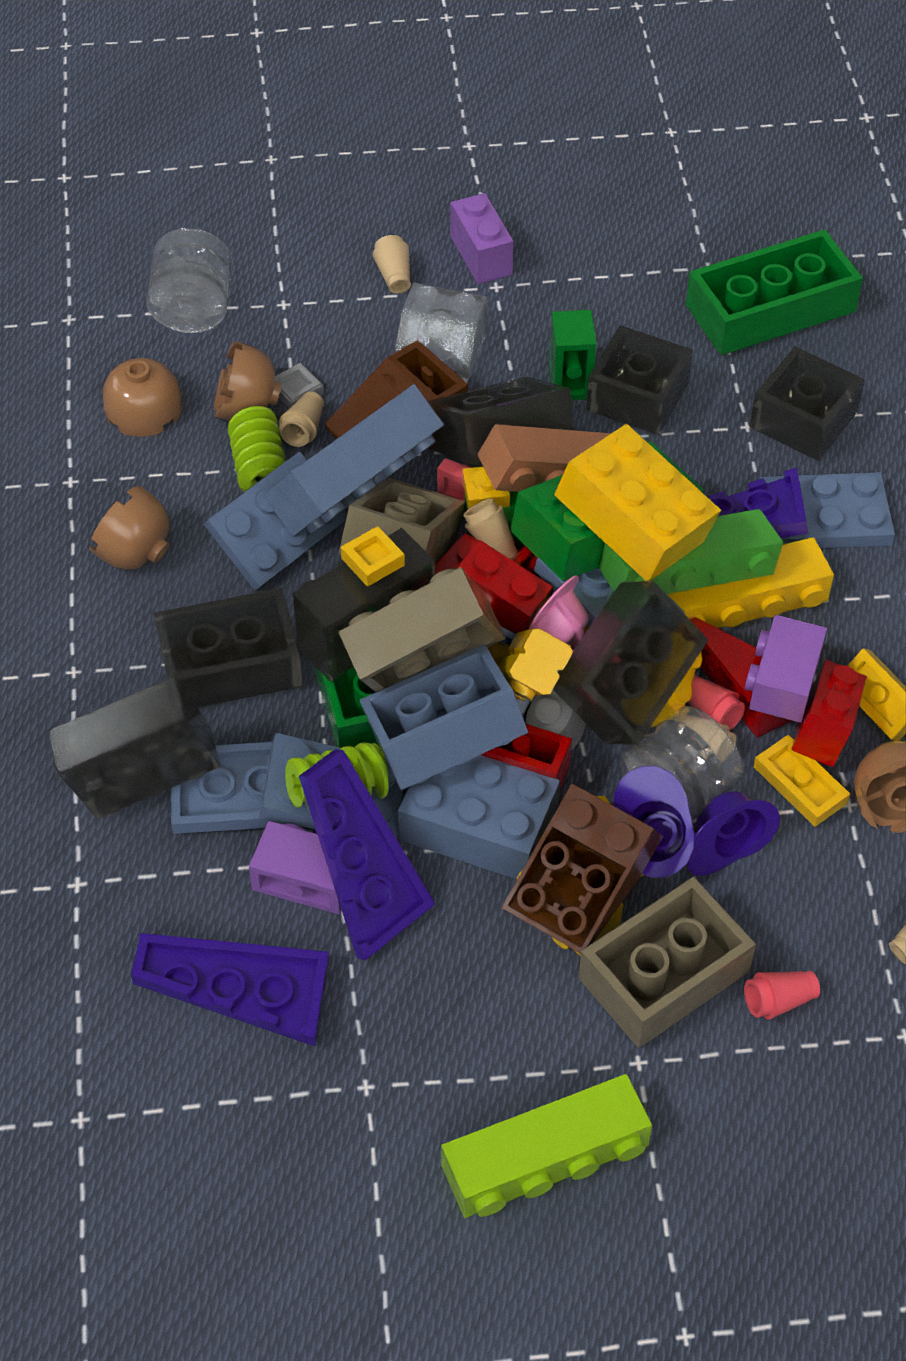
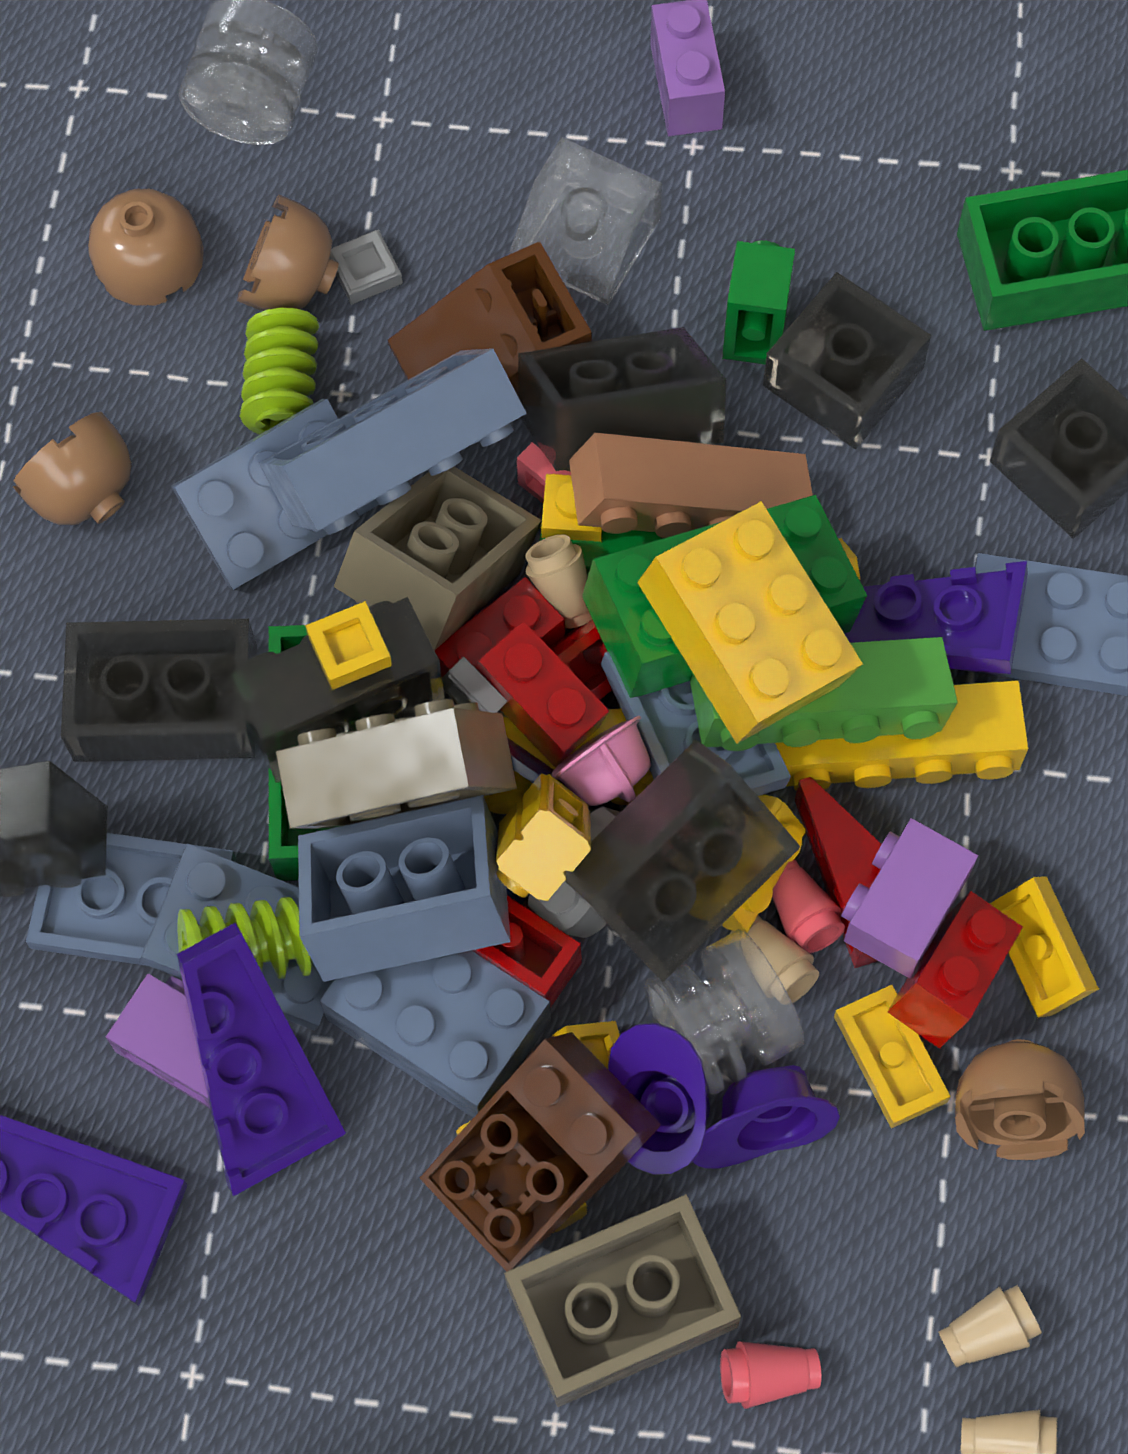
camera: 15 degrees right, 15 degrees up
(301, 421) = (355, 329): tan cone -> none
(393, 262) = (552, 83): tan cone -> none

